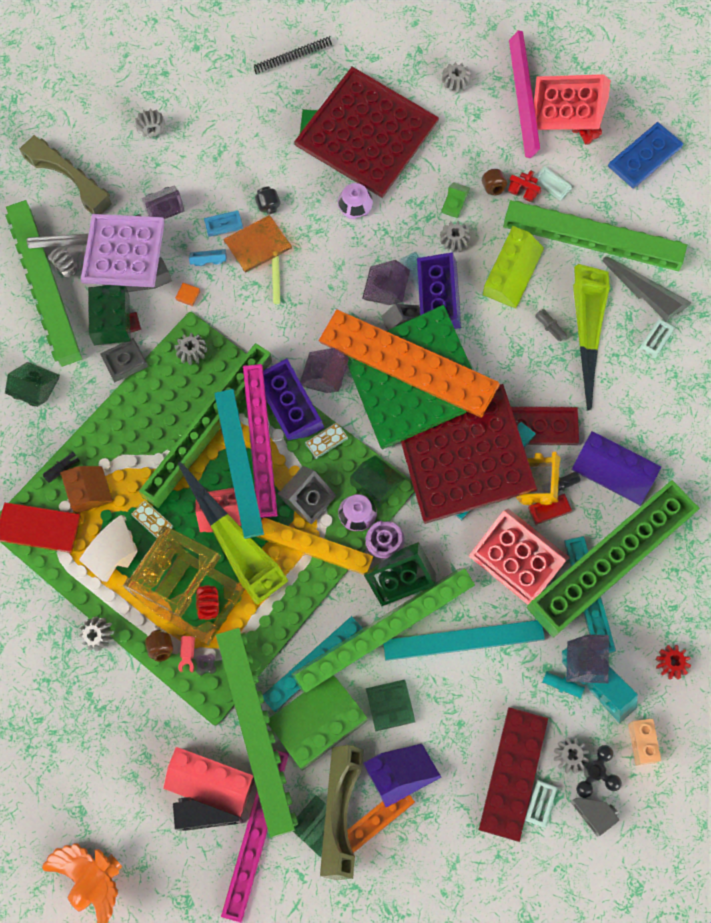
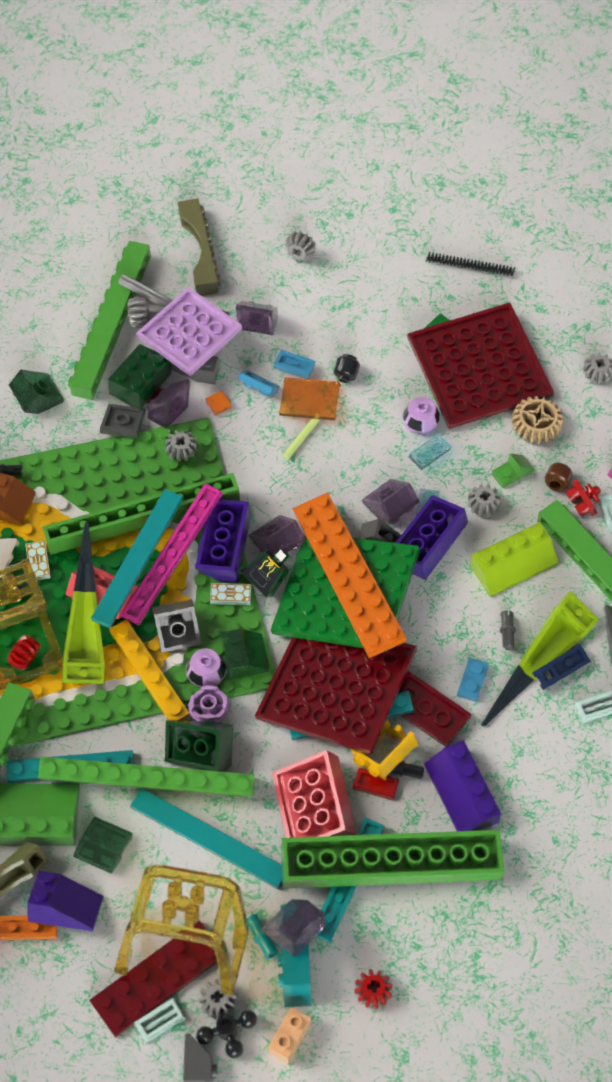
camera: 35 degrees right, 10 degrees down
(151, 320) = (169, 403): none -> clear purple slope
(342, 403) = (267, 571): none -> torso
(383, 225) = (430, 451): none -> clear light blue plate
(448, 141) = (548, 424): none -> tan gear
(507, 713) = (230, 897): none -> clear yellow windscreen
(555, 380) = (472, 679): none -> dark azure plate
(611, 326) = (562, 666): none -> dark blue plate

